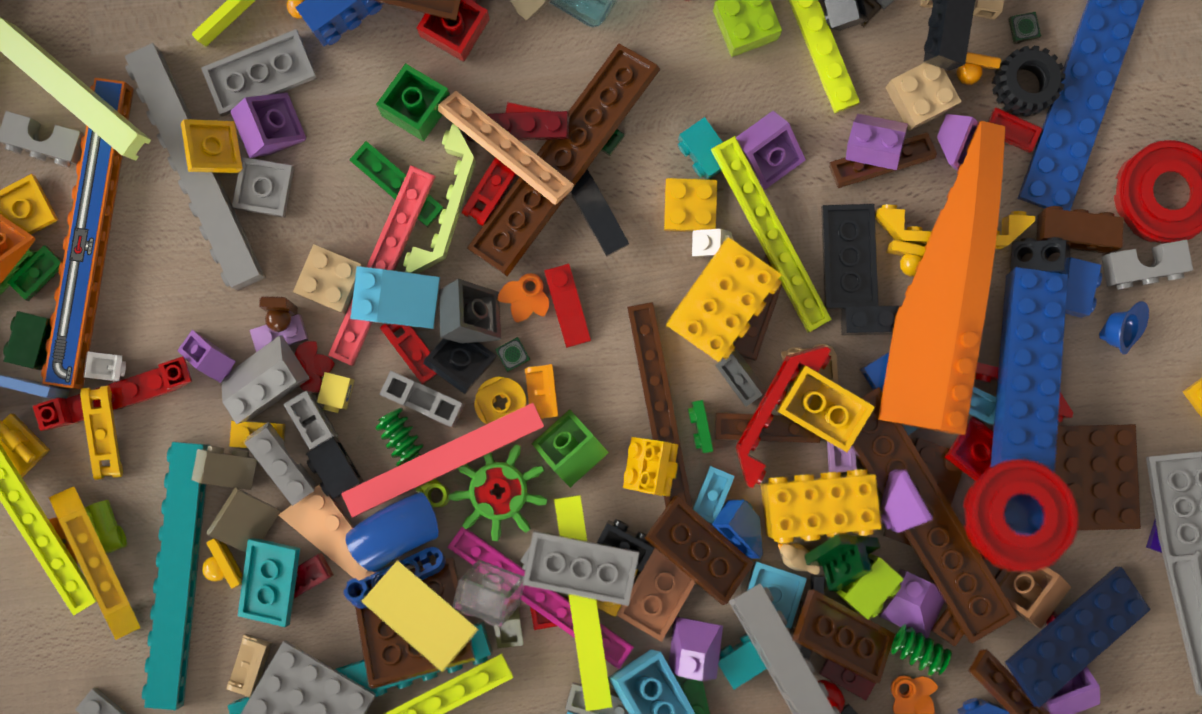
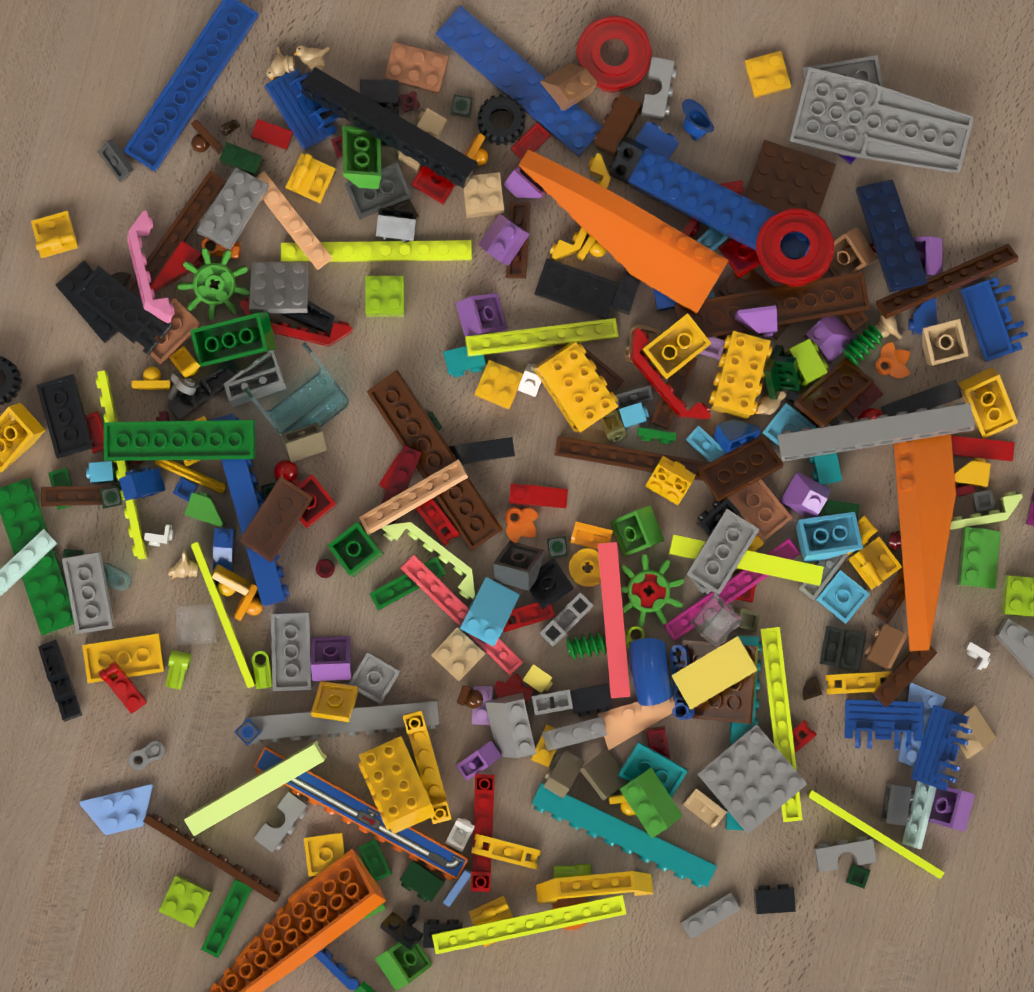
camera: 75 degrees left, 0 degrees up
(129, 260) = (395, 785): none -> yellow brick
(134, 53) = (247, 732): none -> tile
(169, 298) = (427, 765): none -> yellow slope
(221, 44) = (262, 672): none -> lime piece
(223, 594) = (651, 802): none -> bright green slope
(379, 76) = (325, 568): none -> dark red plate
(692, 367) = (613, 426): none -> olive bracket
(716, 388) = (633, 415): none -> medium azure brick
(911, 30) = (433, 185): none -> red tile
(957, 675) = (887, 326): none -> tan animal
(1106, 151) = (569, 85): none -> medium nougat slope

